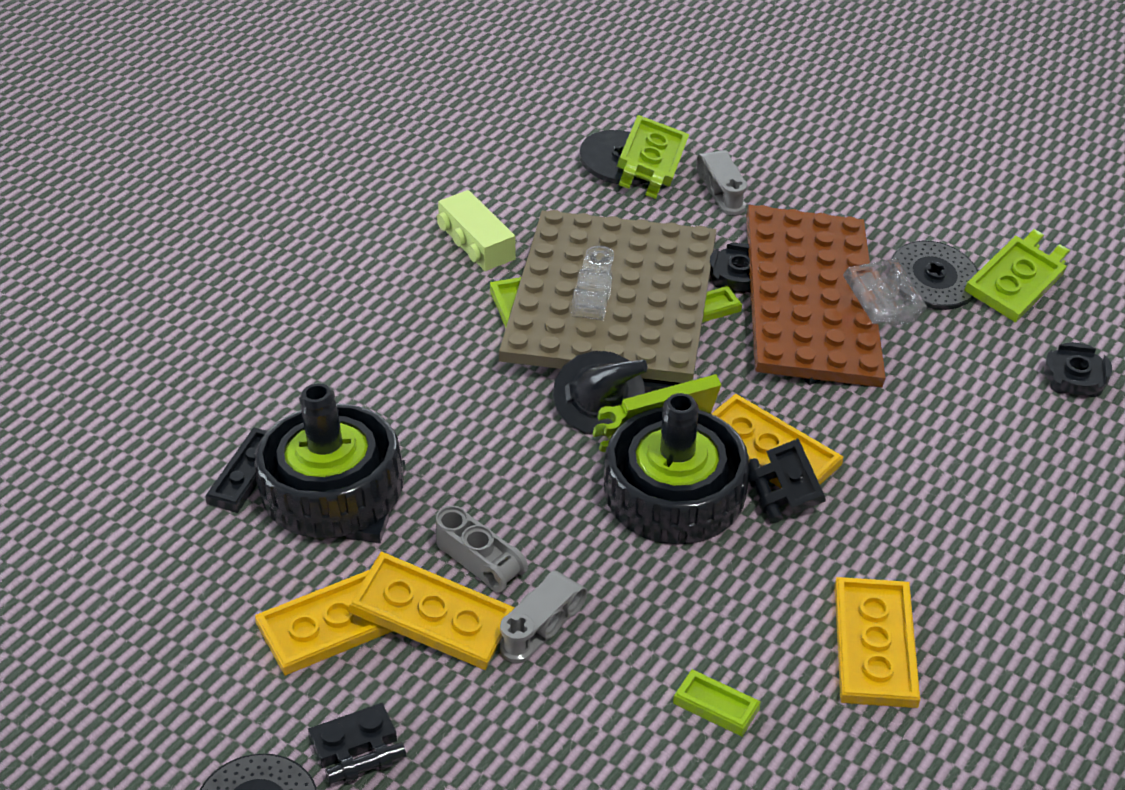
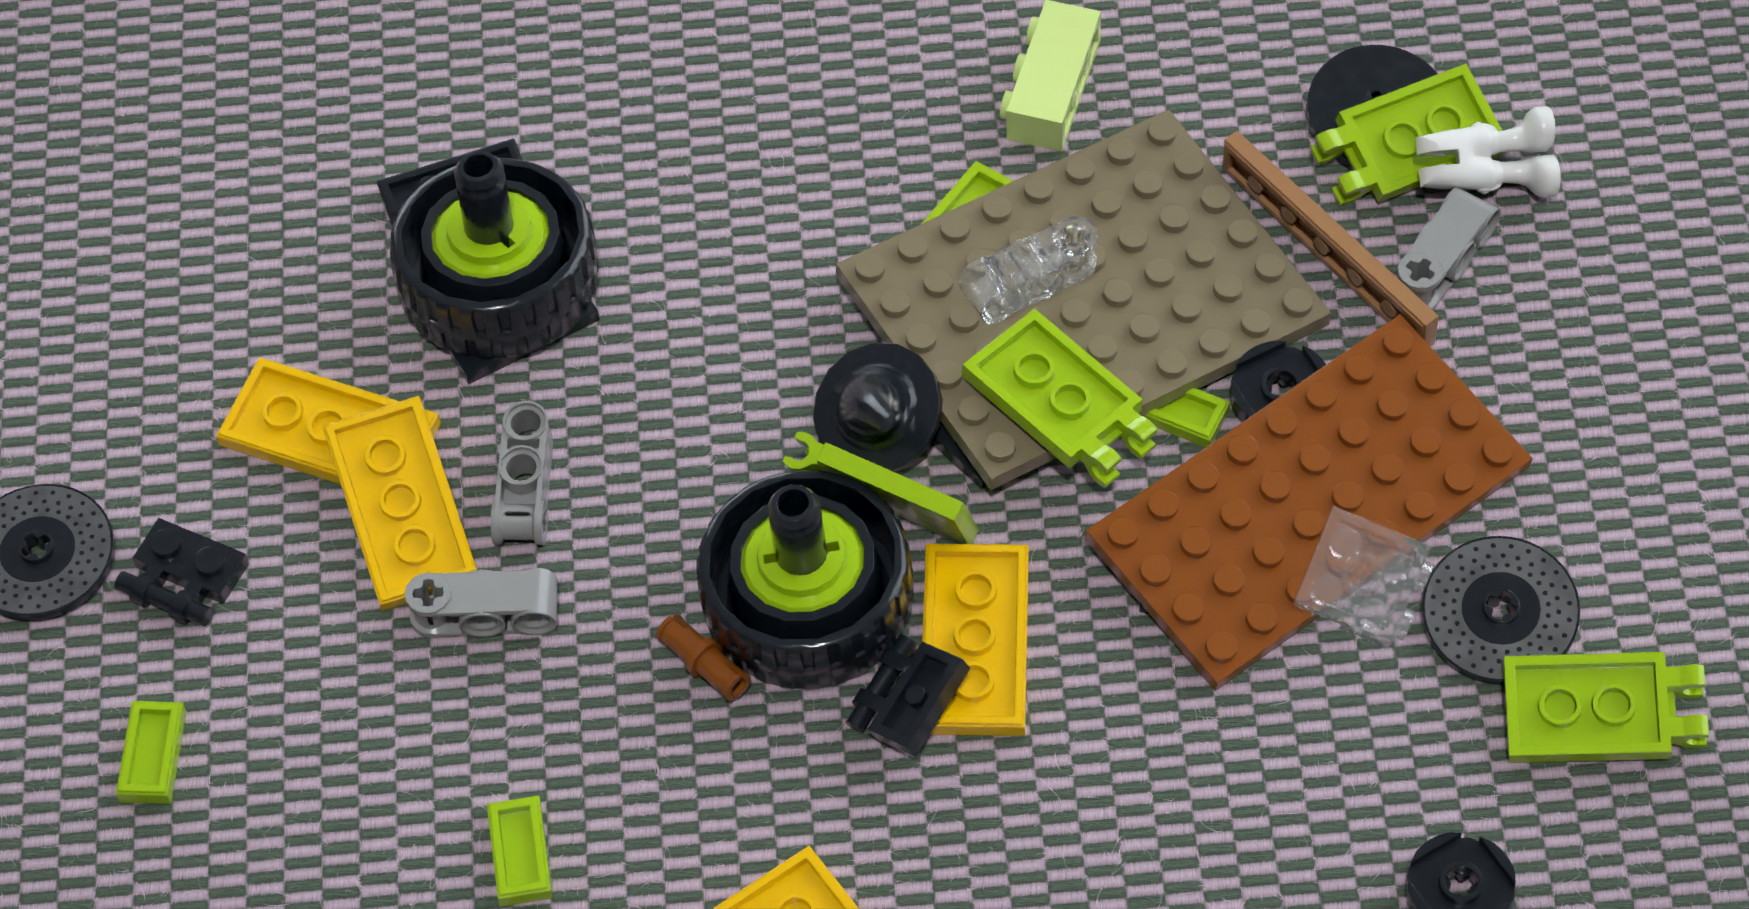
camera: 55 degrees right, 15 degrees up
(674, 205) = (1325, 237): none -> medium nougat tile
(674, 548) = (703, 657): none -> dark orange pin
(677, 321) = (1061, 396): none -> lime tile
(684, 136) = (1473, 155): none -> white piece

